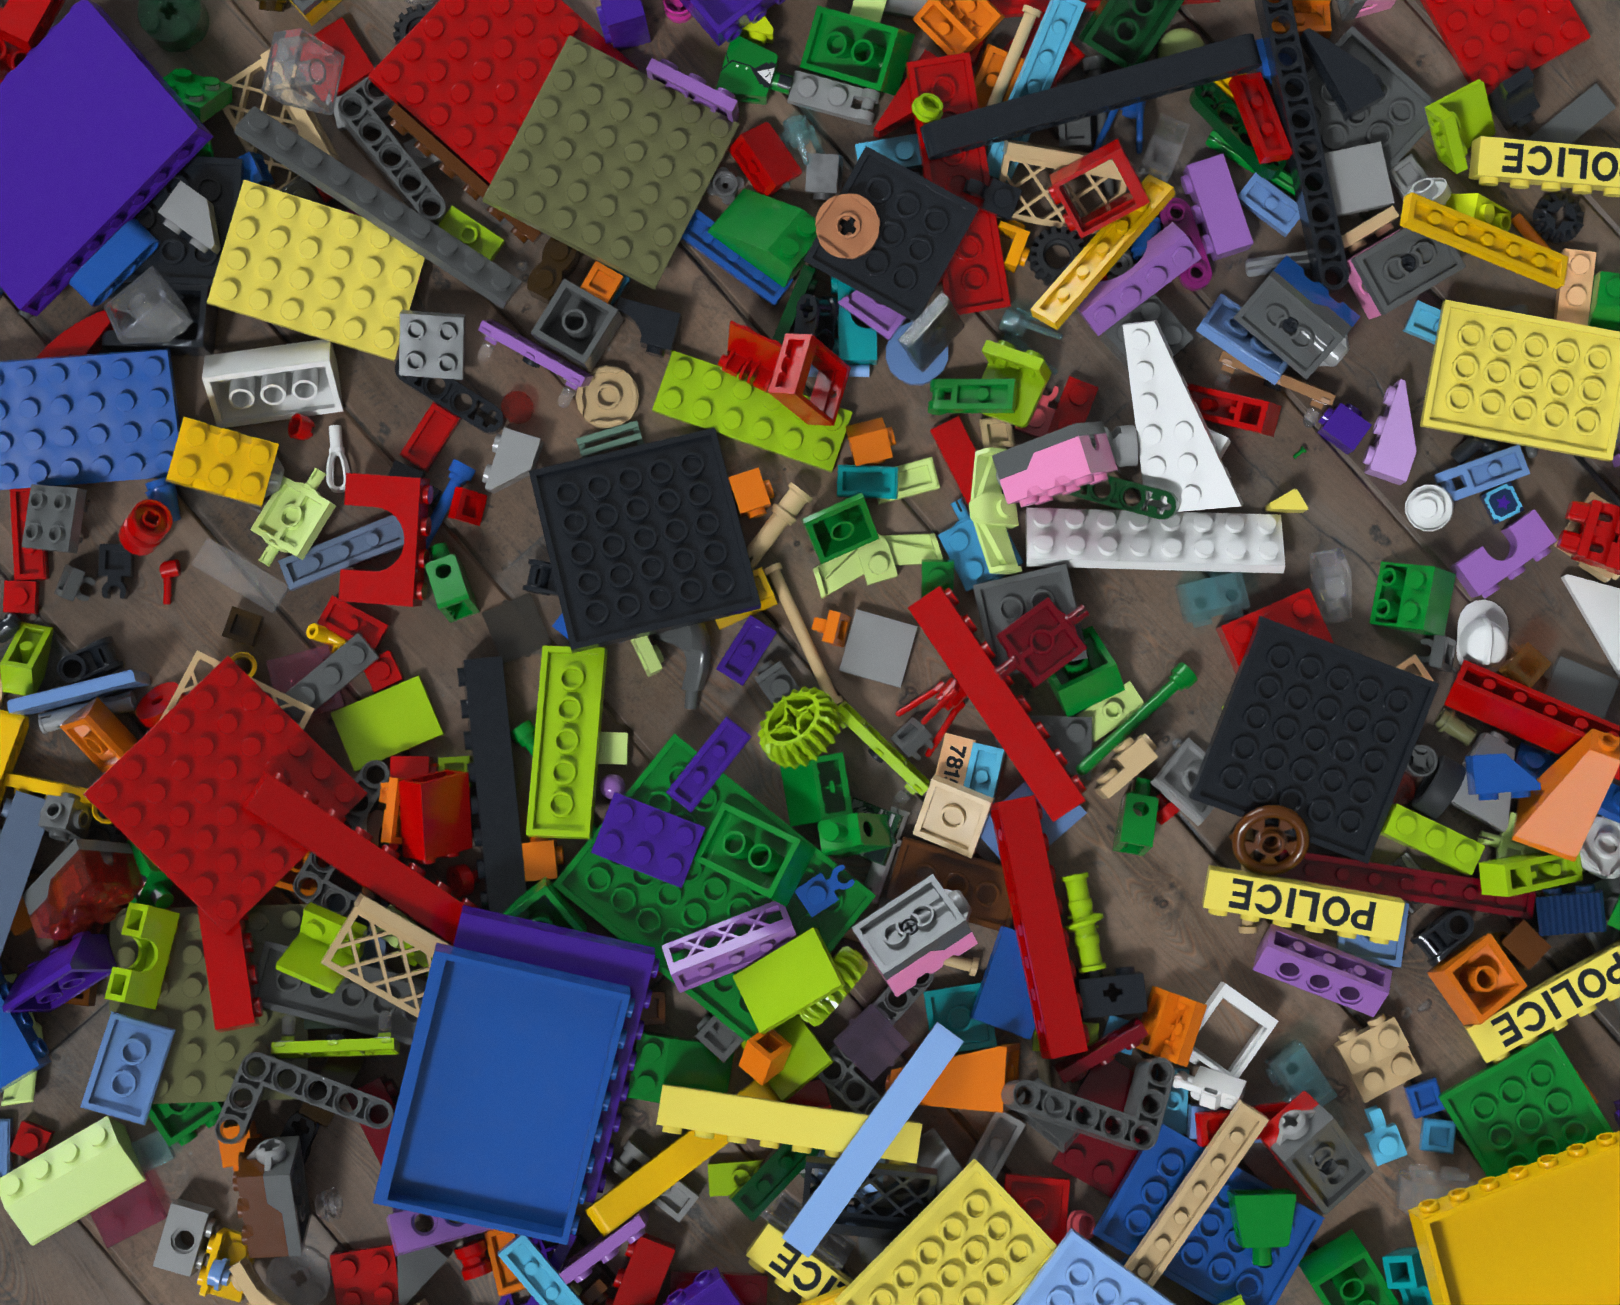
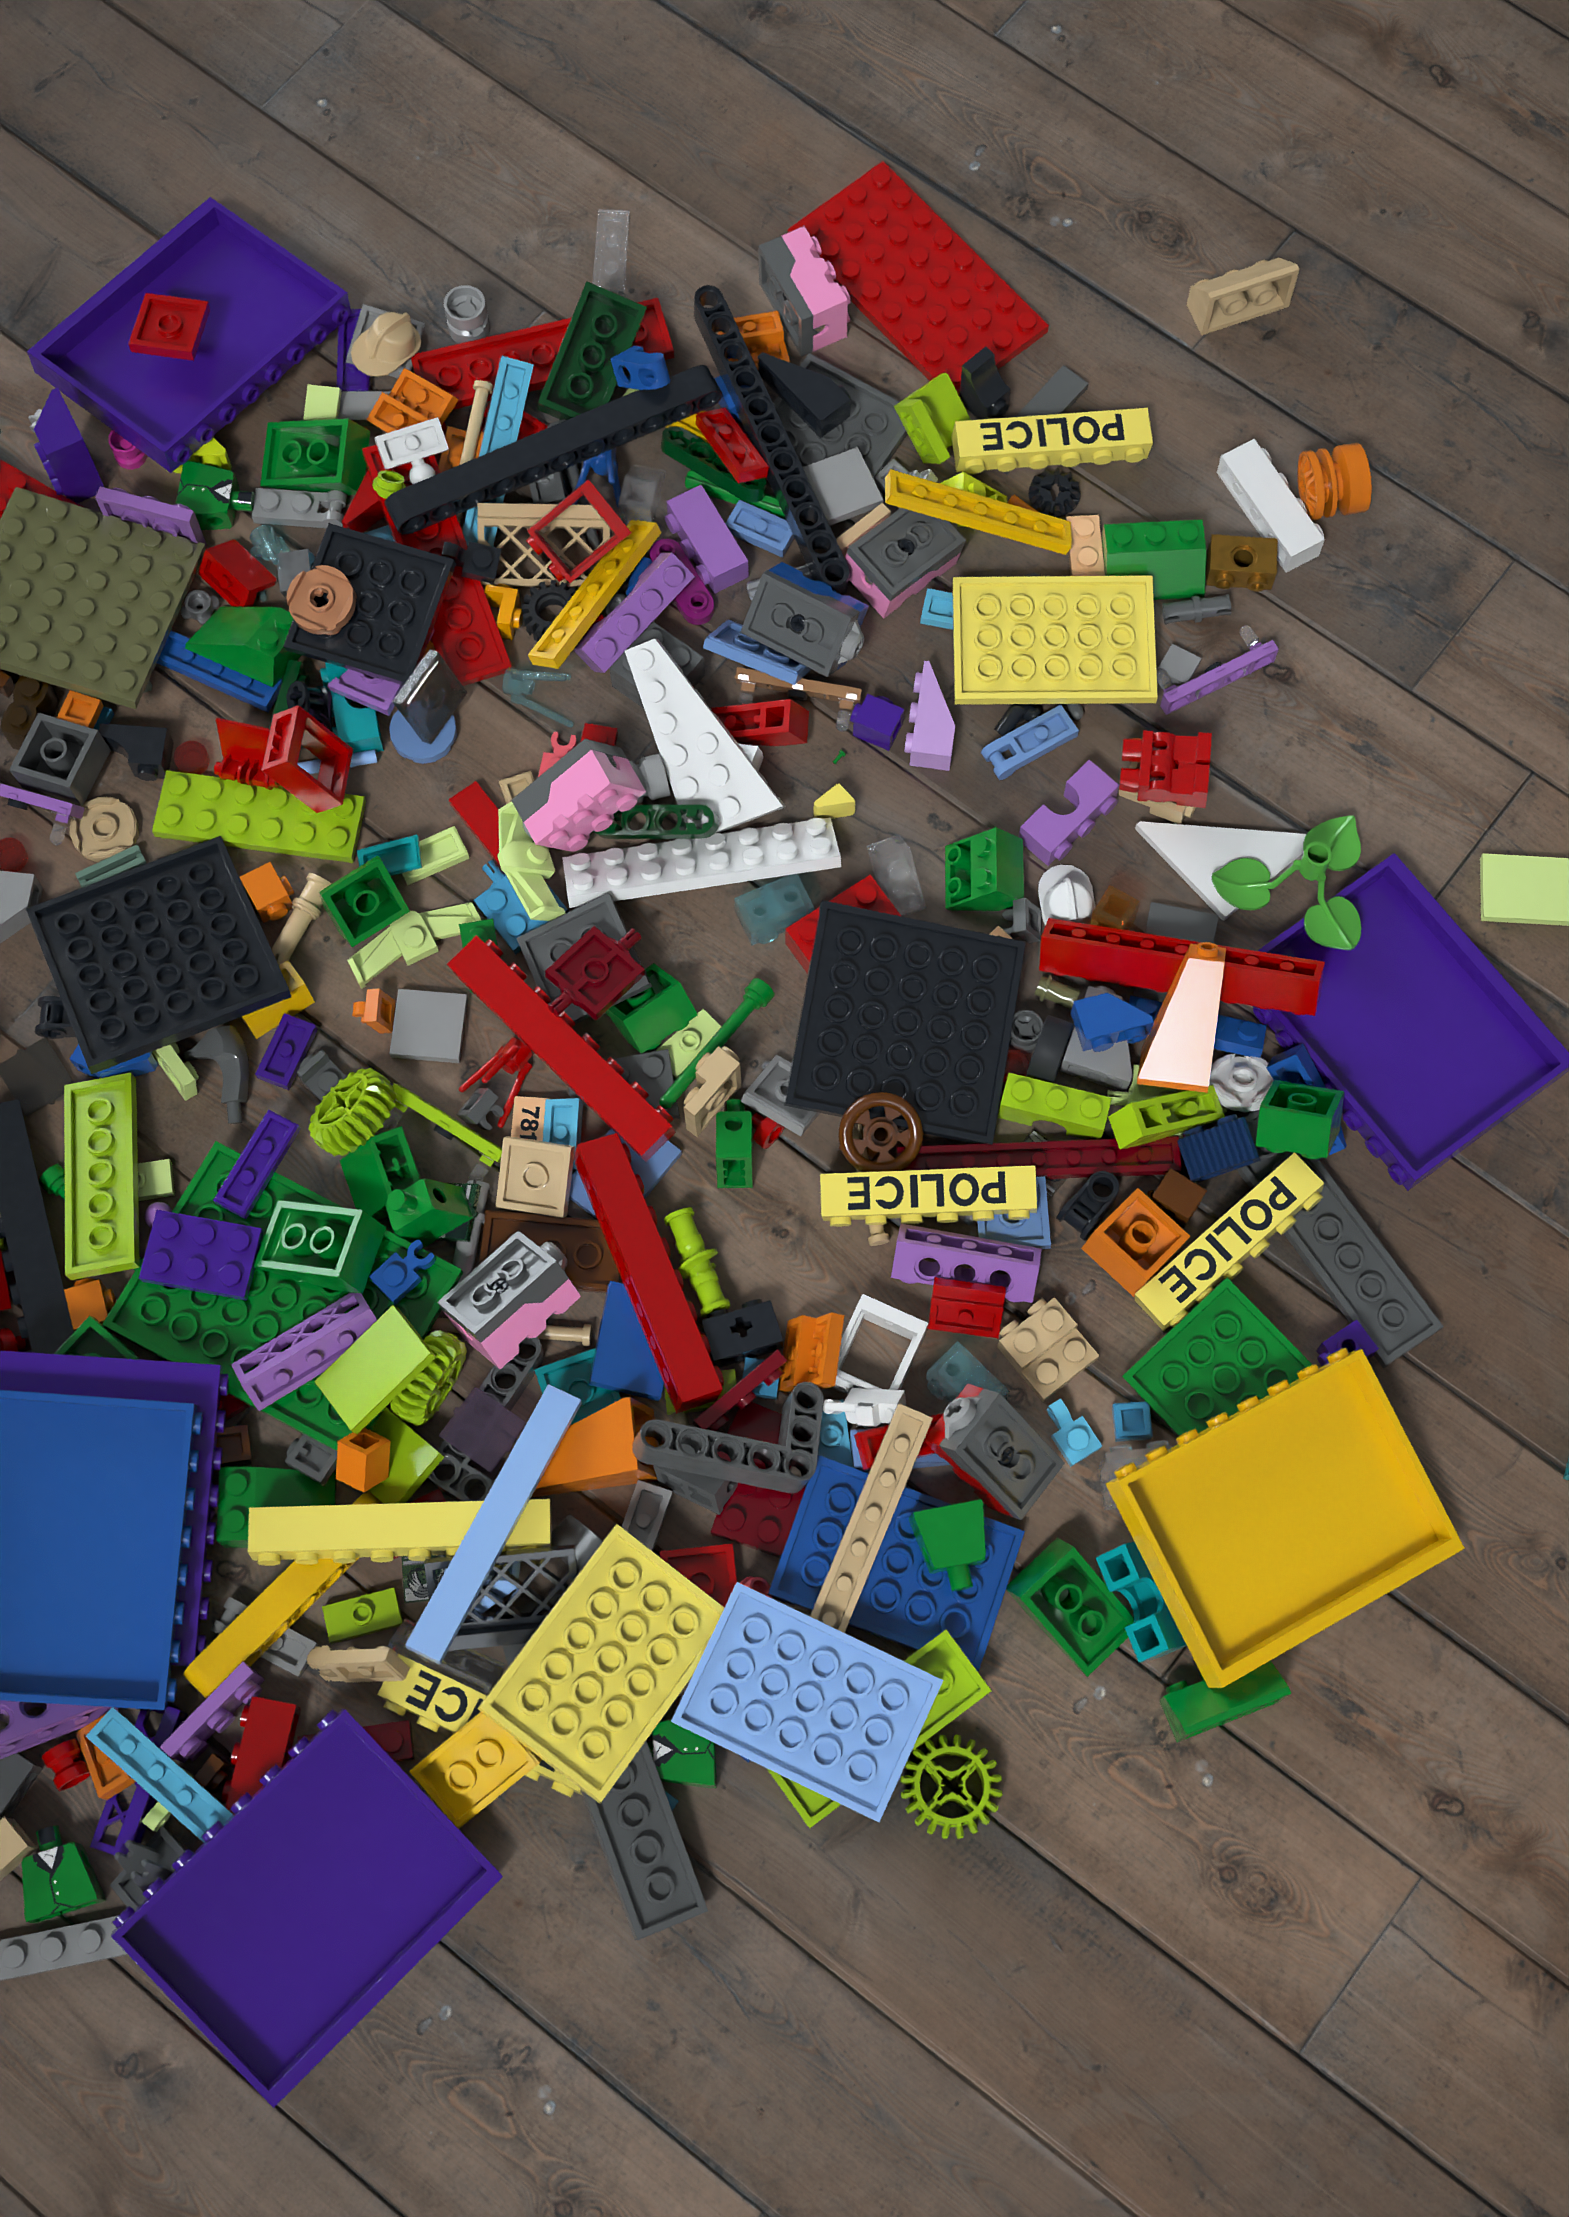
camera: 15 degrees left, 15 degrees down
(697, 341) = (191, 757): none -> clear red tile
(732, 1227) = (358, 1664): none -> tan hinge
(769, 1180) = (392, 1604): dark green plate -> none
(801, 631) = (305, 968): tan bar -> none
(870, 442) = (387, 819): orange brick -> none
(955, 72) = (413, 445): none -> white plate
(973, 396) = (485, 755): green plate -> none
(1028, 370) = (525, 734): lime bracket -> none
(1191, 32) = (646, 370): none -> blue leg
(1314, 1009) = (966, 1307): none -> red plate
(1424, 1097) = (1108, 1383): blue tile -> none
(1429, 507) = (982, 781): white plate -> none
(1501, 503) = (1056, 766): tile -> none

